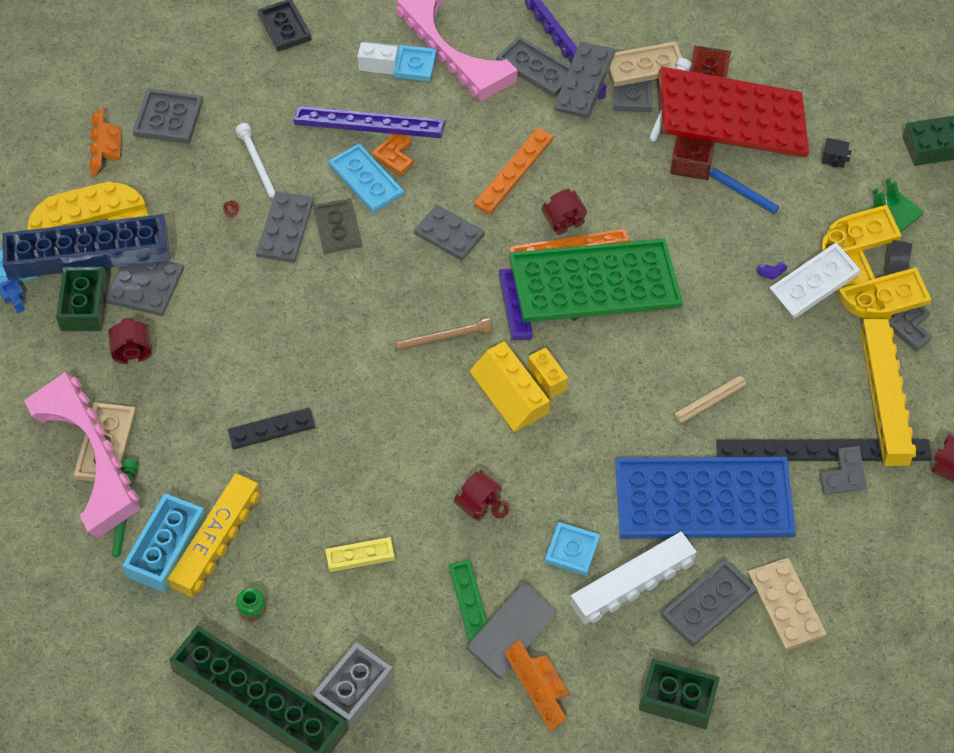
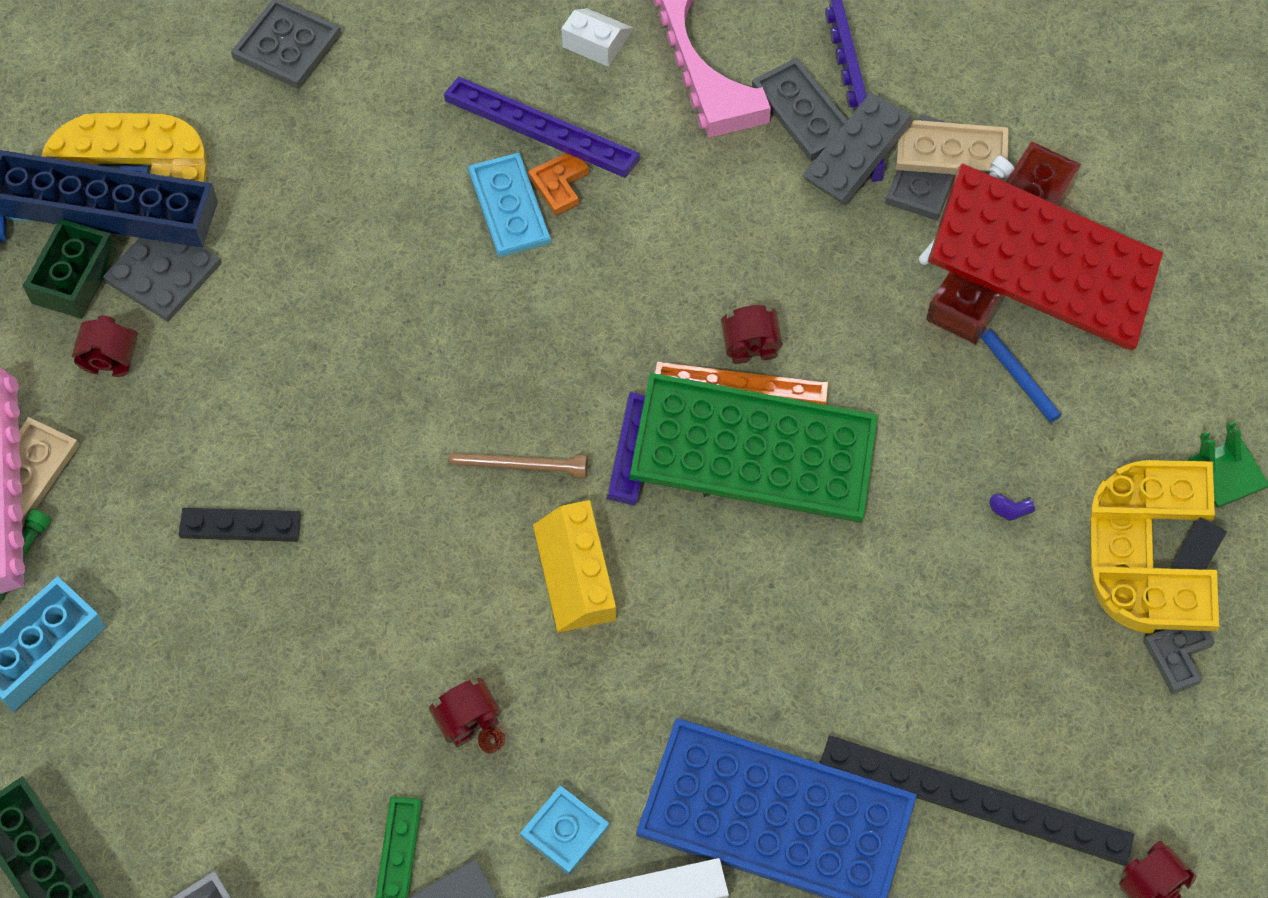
camera: 20 degrees right, 5 degrees up
(105, 141) = (193, 56): orange bracket -> none
(214, 536) = (104, 653): yellow brick -> none
(234, 206) = (306, 199): clear red hinge -> none
(244, 133) = (375, 94): white piece -> none
(251, 604) = (108, 767): green head -> none
(285, 227) = (373, 243): dark grey plate -> none
(337, 226) = (442, 262): clear smoke tile -> none
(360, 554) = (279, 742): light yellow plate -> none
(415, 63) = (640, 58): medium azure plate -> none
(449, 232) = (587, 316): dark grey plate -> none
(513, 171) = (710, 252): orange plate -> none
(547, 373) = (634, 563): yellow brick -> none
(710, 399) = (845, 672): tan axle -> none
(815, 280) = (1063, 543): white plate -> none
(836, 153) = (1175, 358): black brick -> none
(849, 477) = (997, 852): dark grey plate -> none
(887, 393) = (1098, 746): yellow brick -> none

